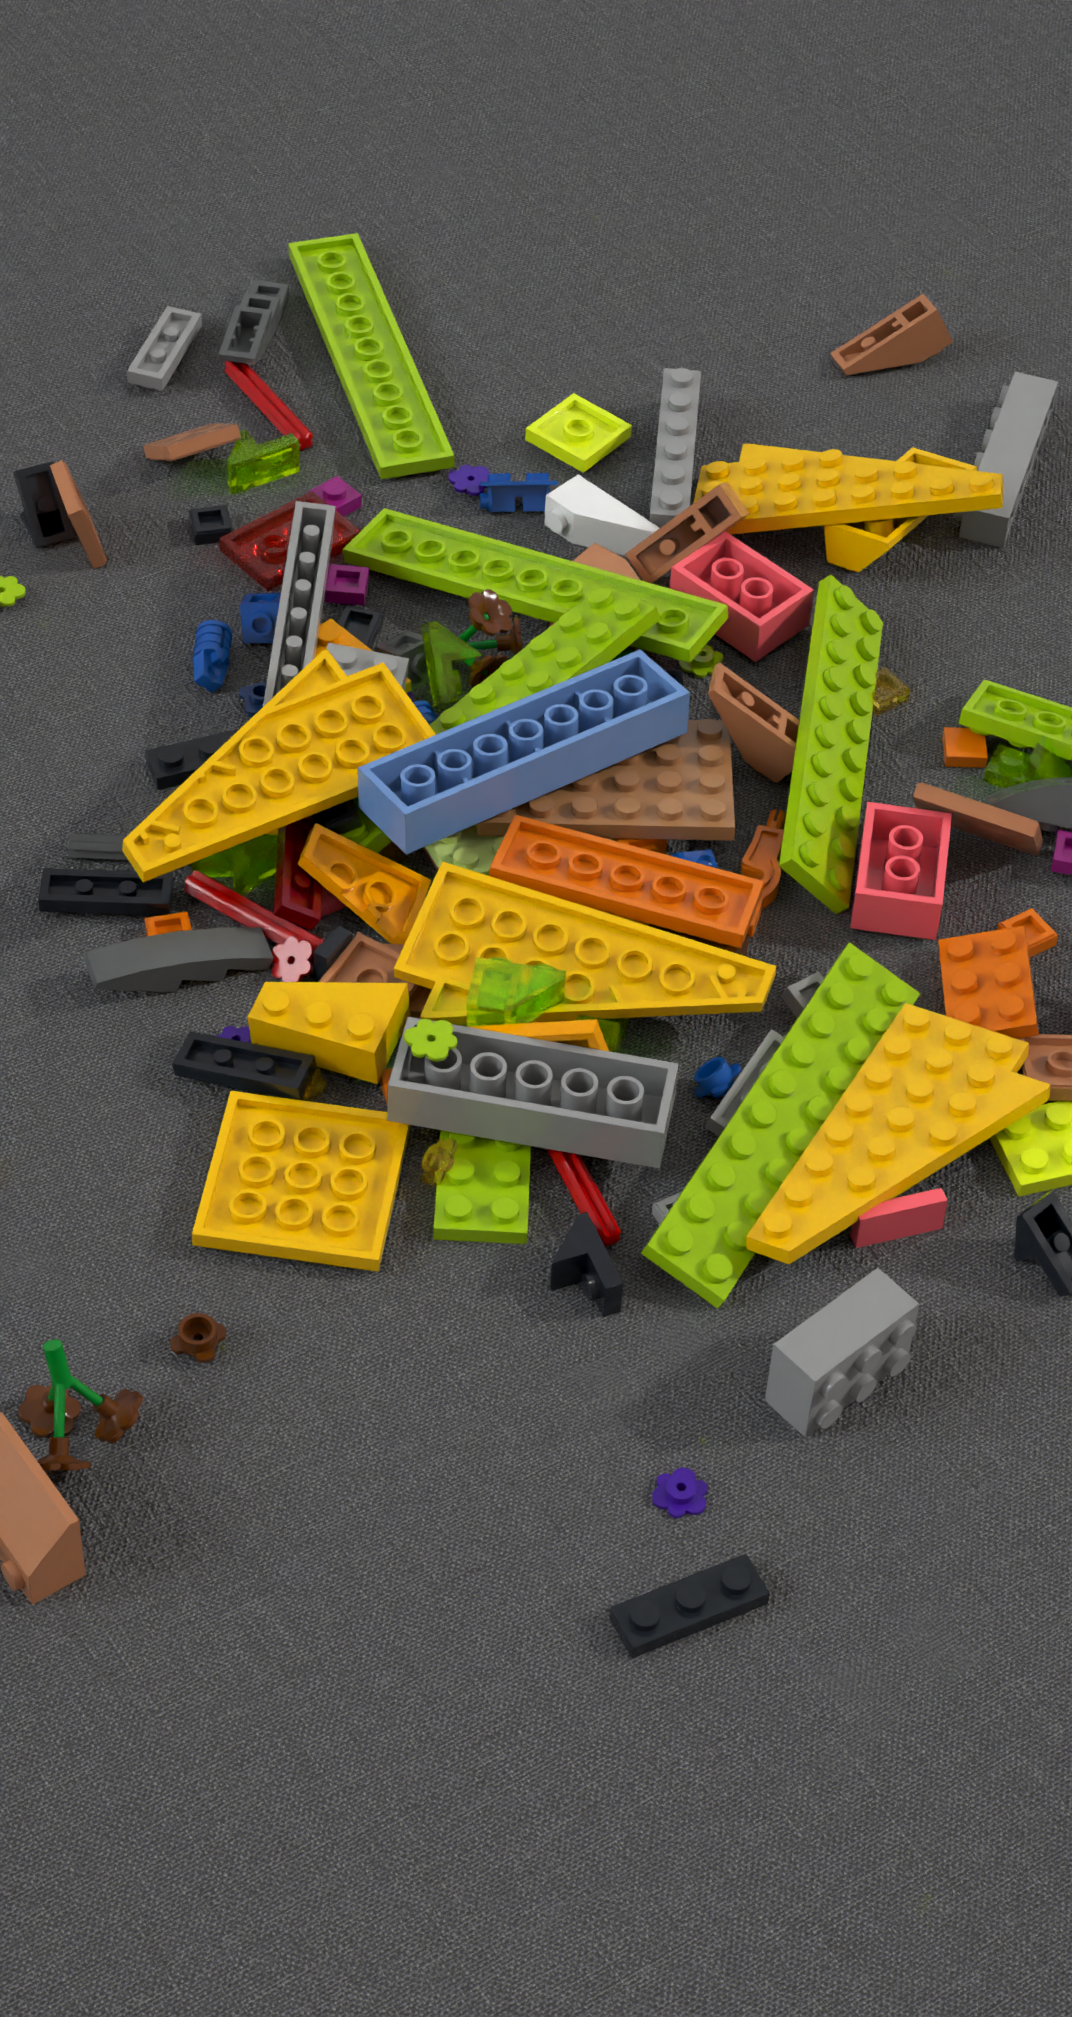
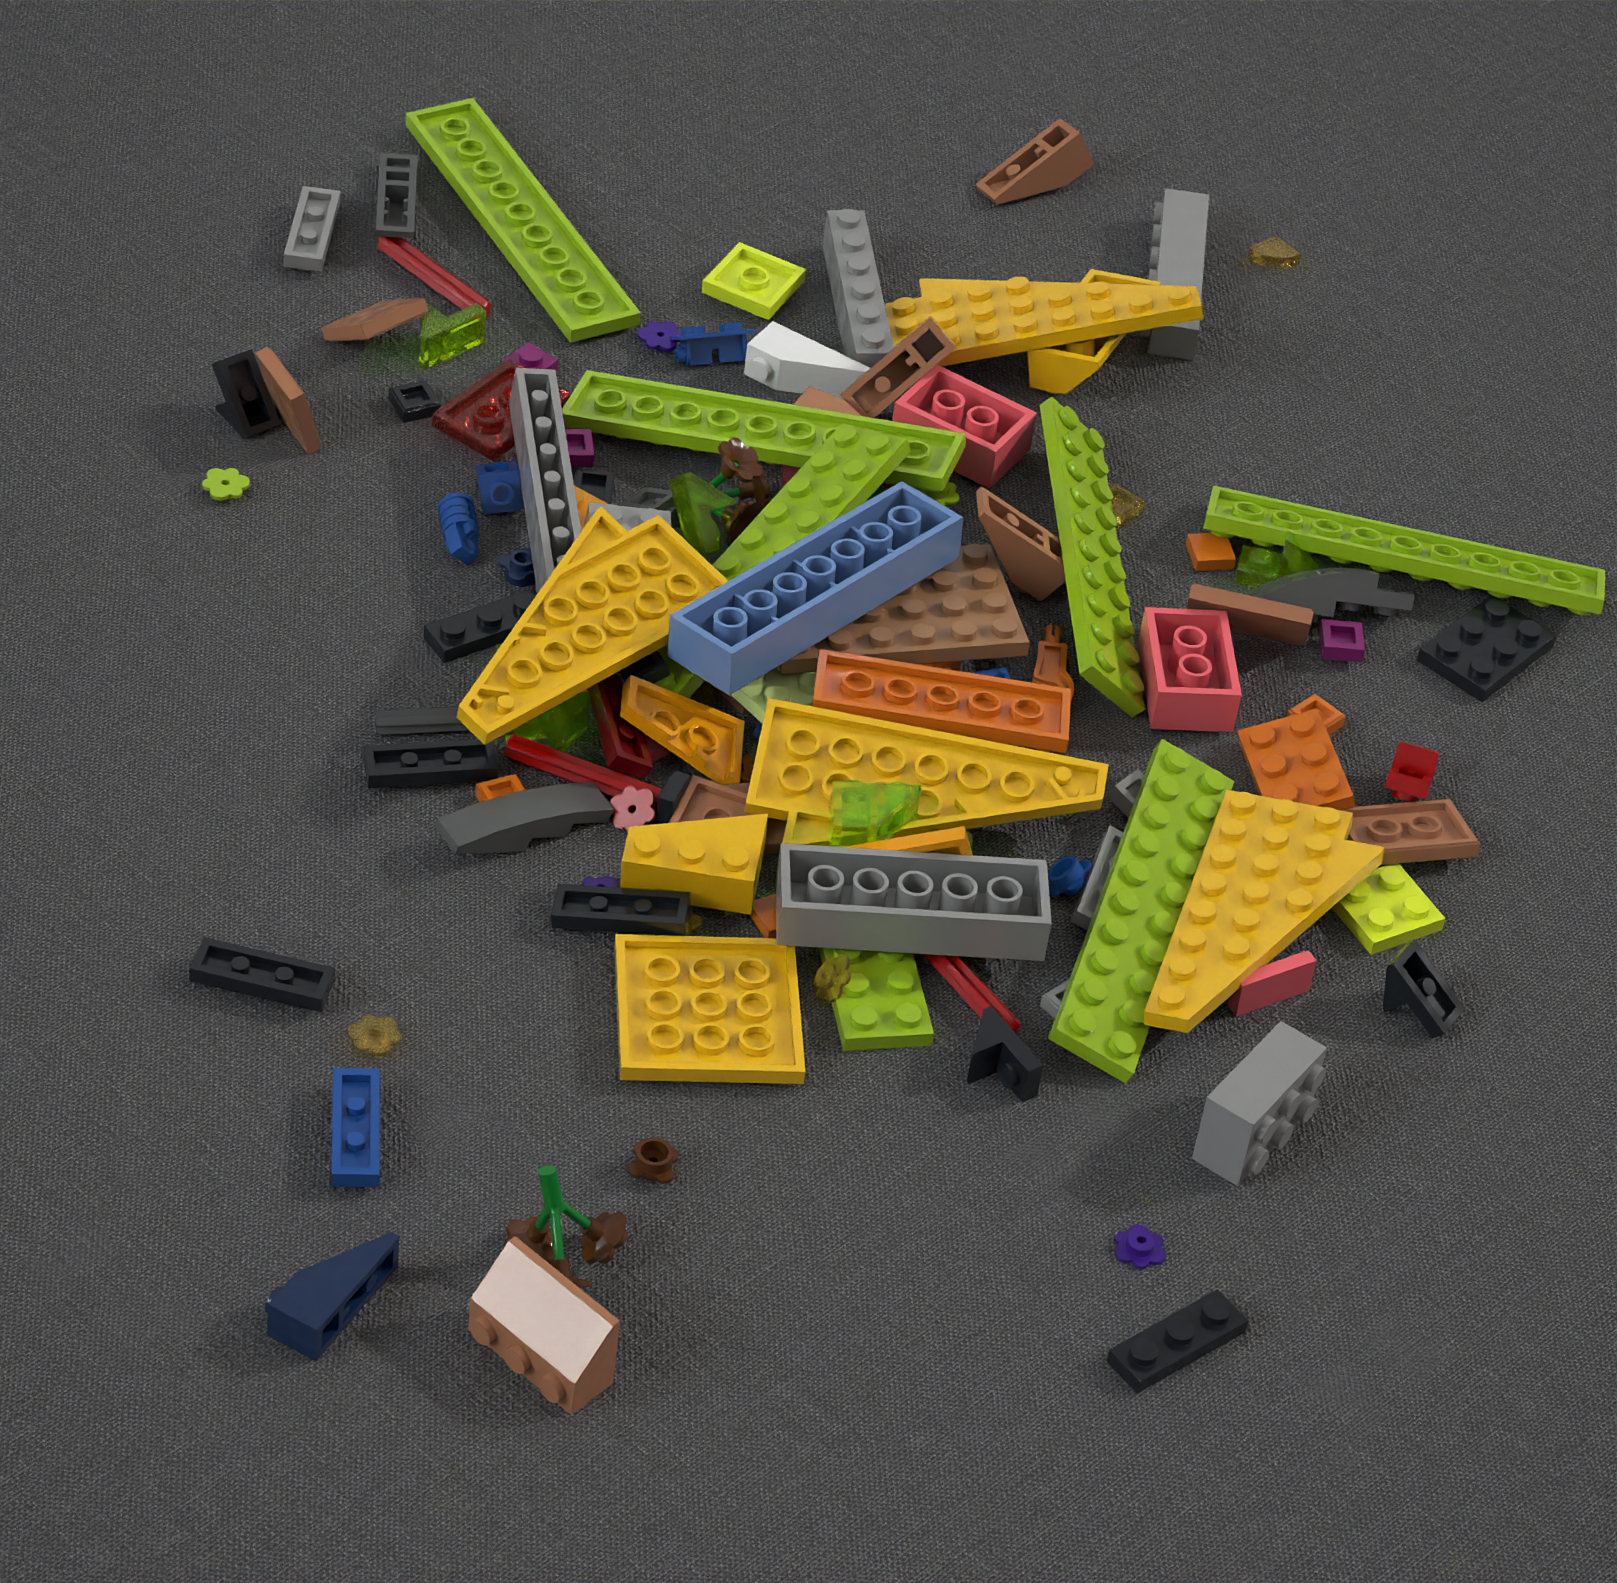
camera: 15 degrees left, 5 degrees down
(431, 1039) = (812, 860): lime plant -> none

